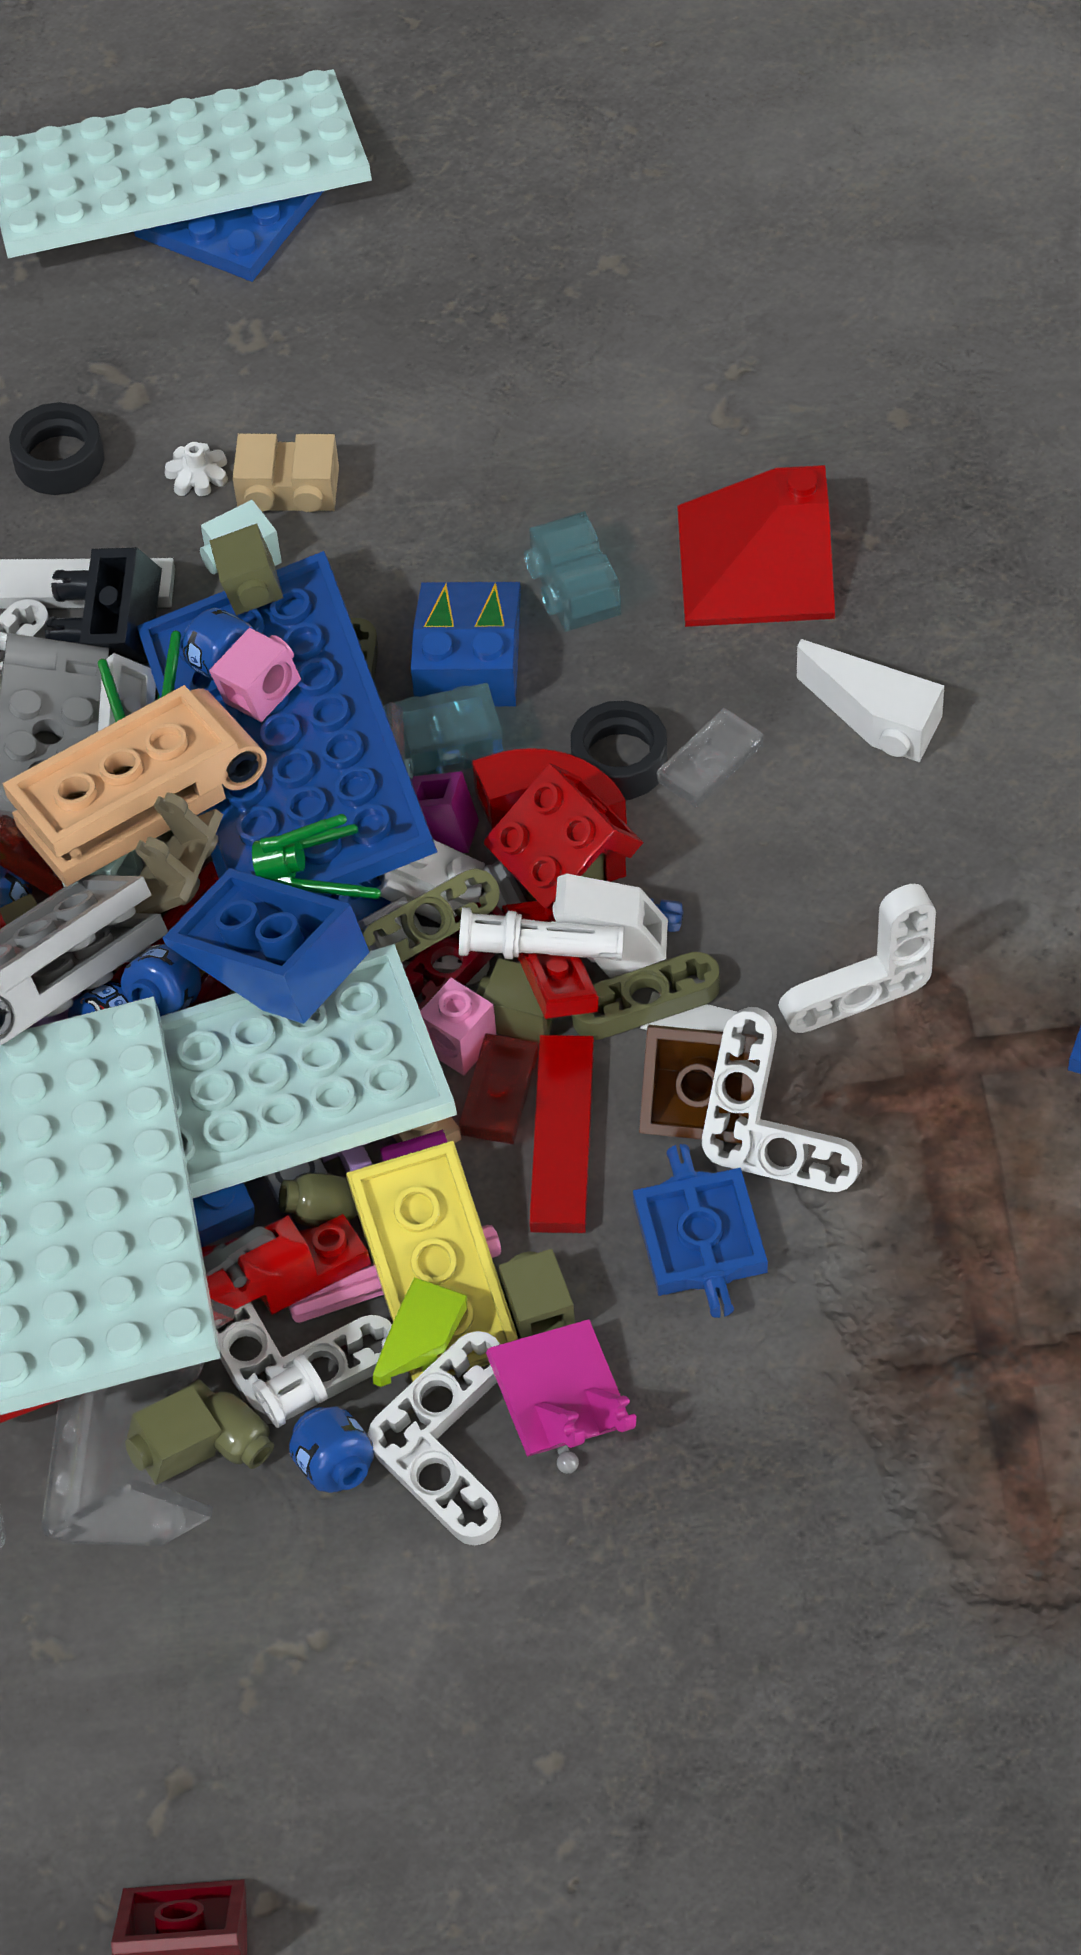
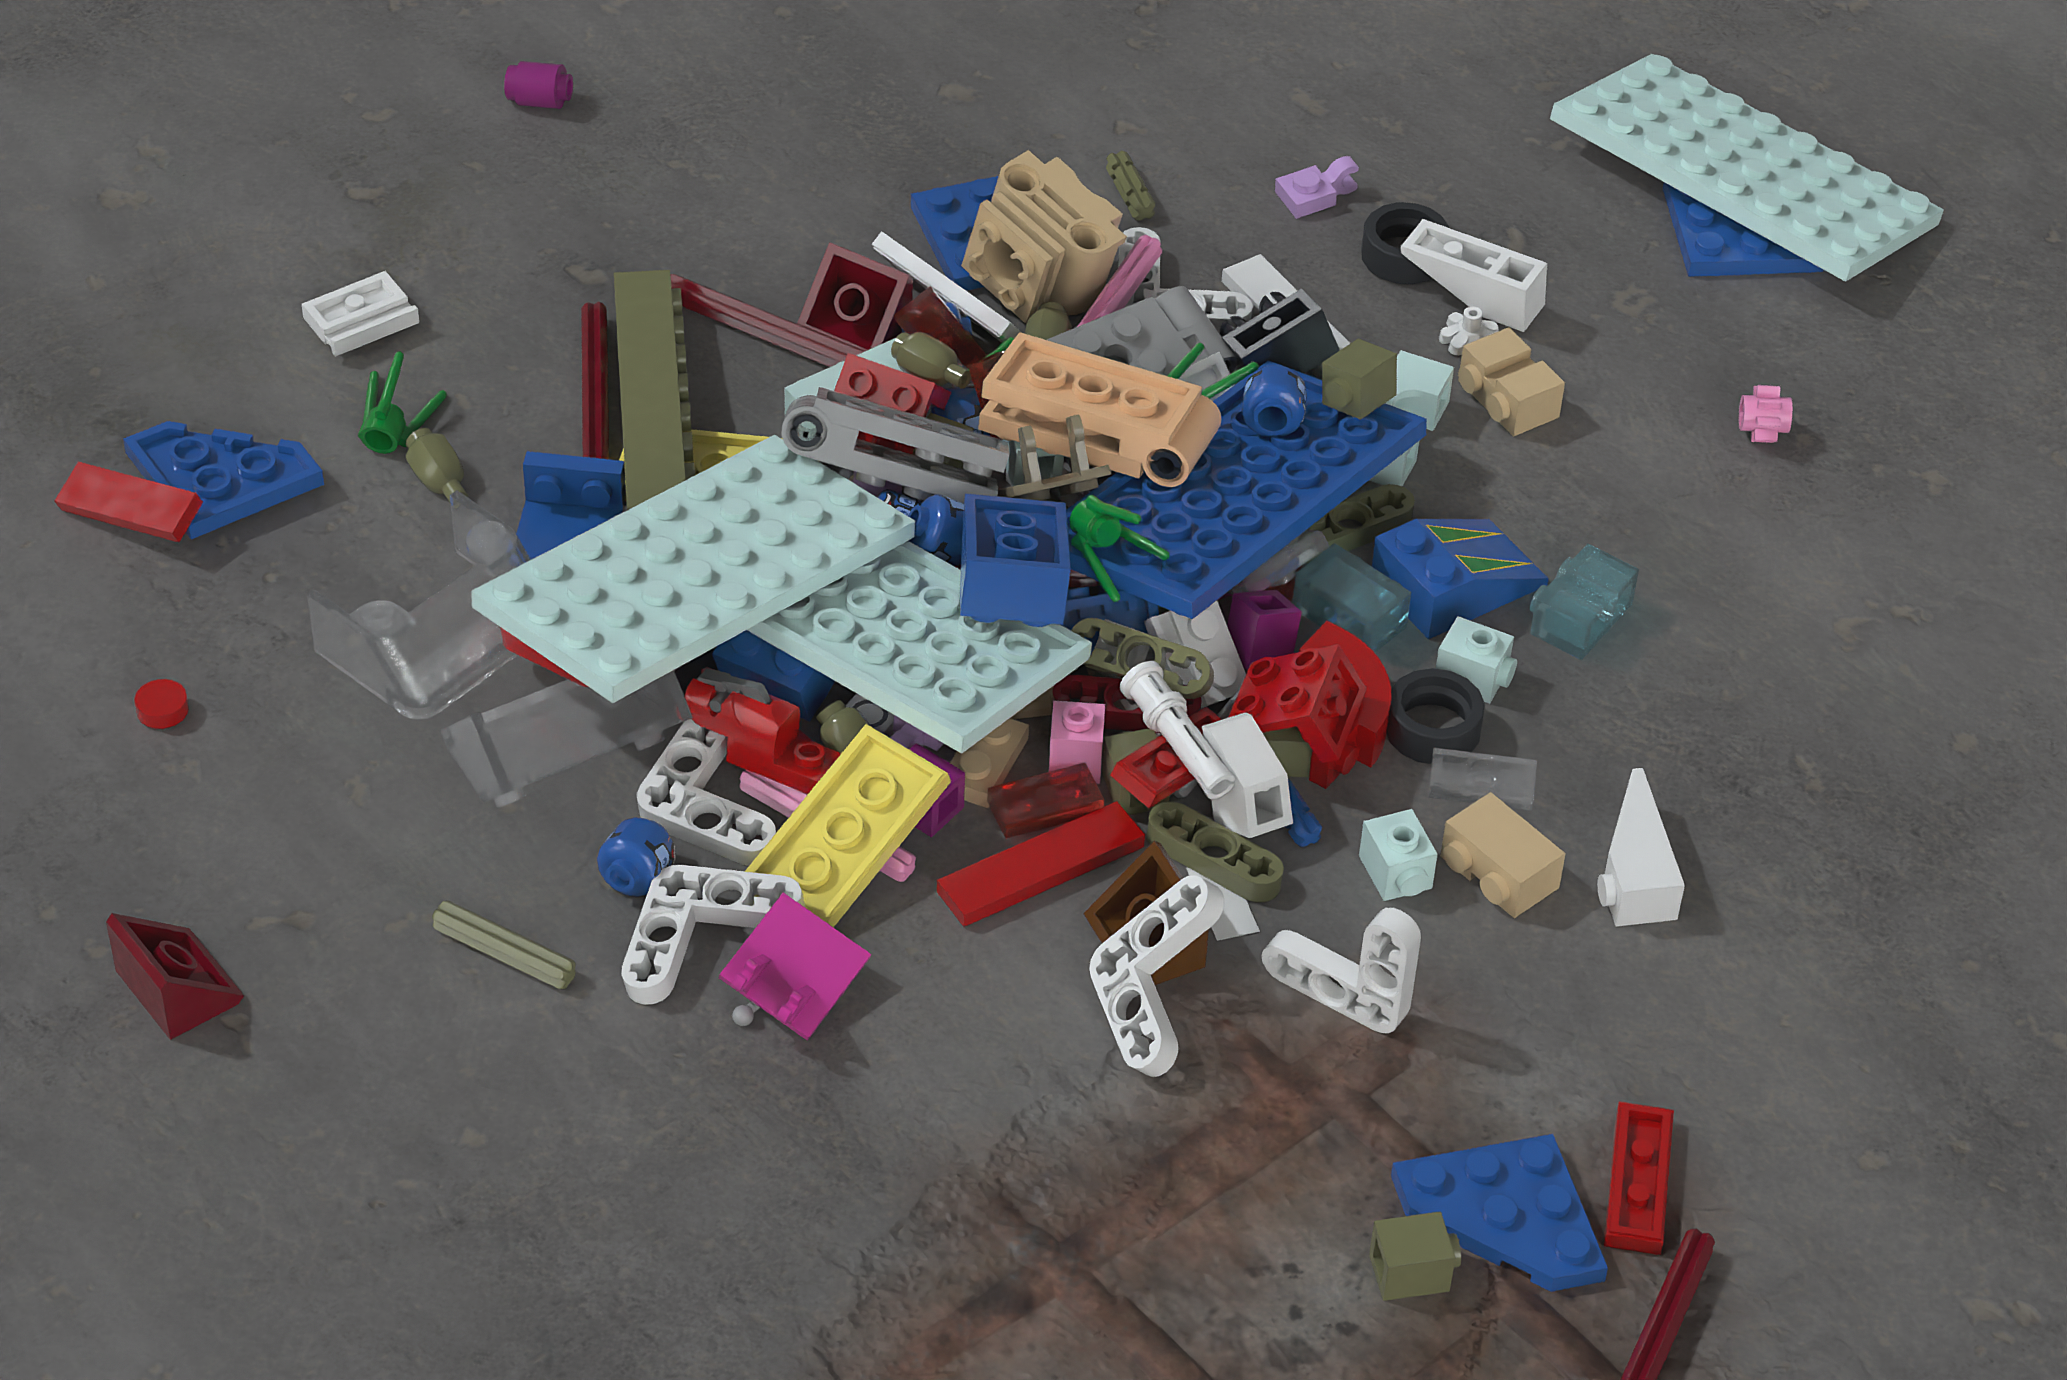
camera: 50 degrees right, 10 degrees down
(152, 416) = (1479, 273): none -> white slope
(172, 1435) = (573, 754): olive brick -> none
(243, 1430) = (612, 788): olive plant -> none
(256, 674) = (1256, 447): bright pink brick -> none
(272, 1393) = (658, 797): white bush -> none
(347, 1618) = (504, 944): none -> olive axle
(419, 1330) = (771, 846): lime slope -> none
(468, 324) = (1765, 413): none -> bright pink gear
(536, 1293) = (871, 912): olive brick -> none
(579, 682) = (1478, 655): none -> light aqua brick
(700, 1231) = (1016, 991): blue plate -> none
(755, 865) = (1398, 855): none -> light aqua brick
(758, 550) = (1726, 713): red slope -> none
(806, 790) = (1504, 852): none -> tan brick

